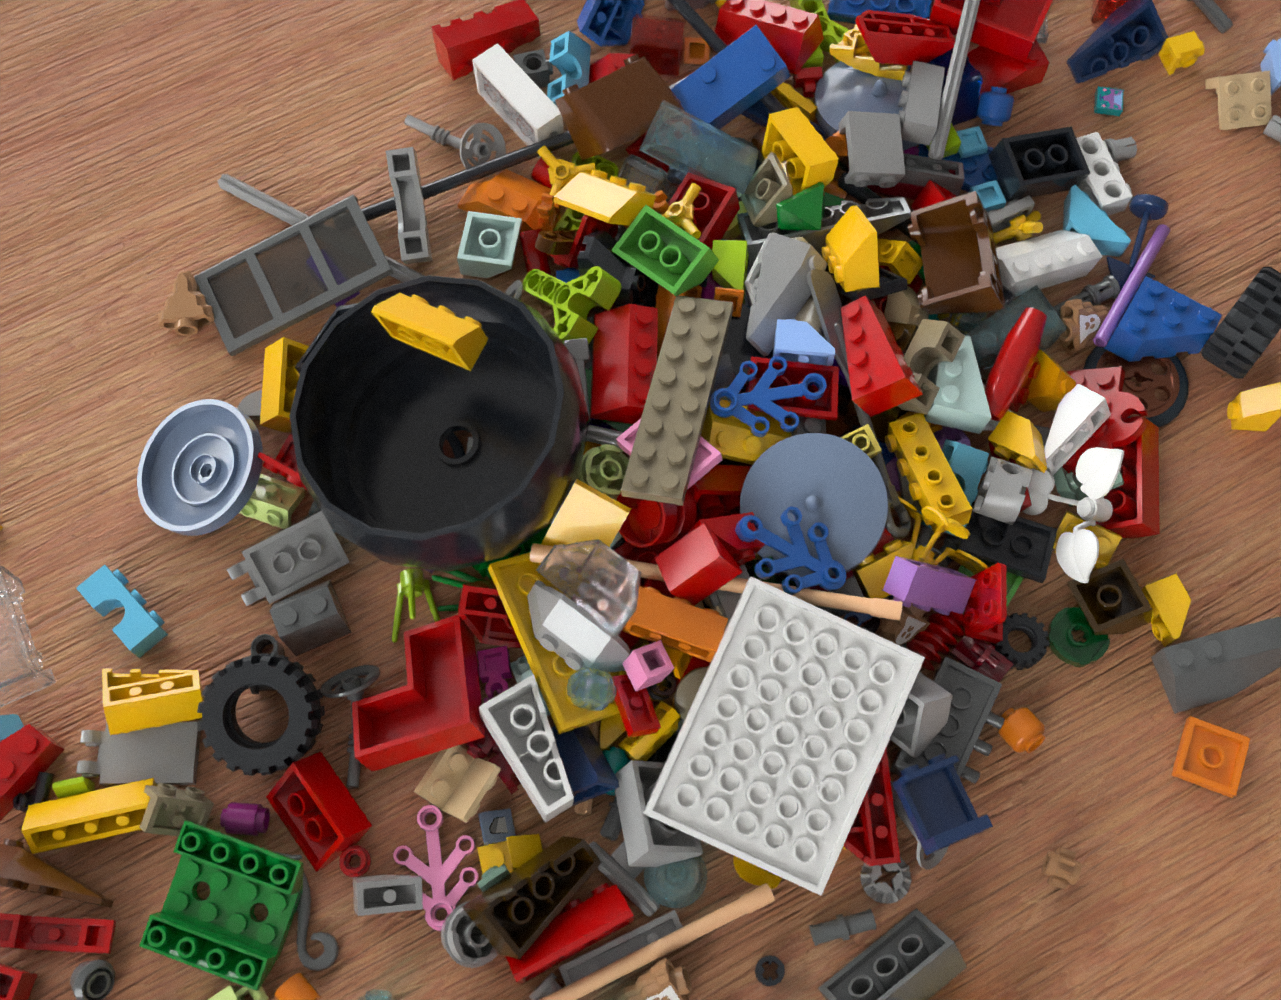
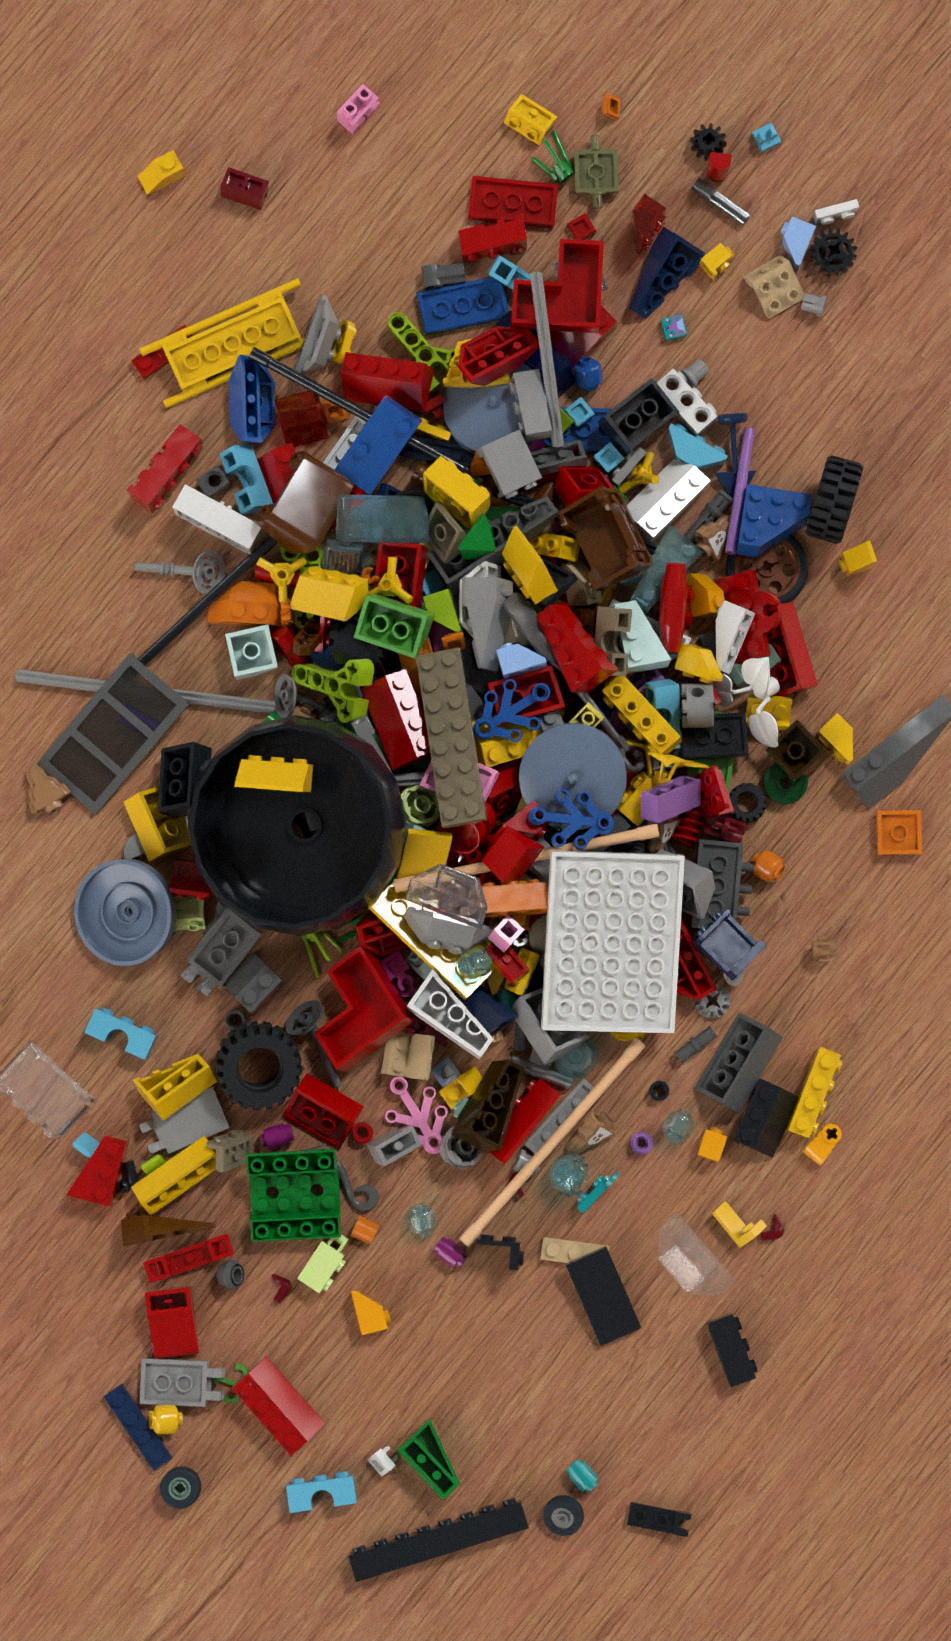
camera: 20 degrees left, 15 degrees up
(410, 206) = (179, 648): light grey arch -> none

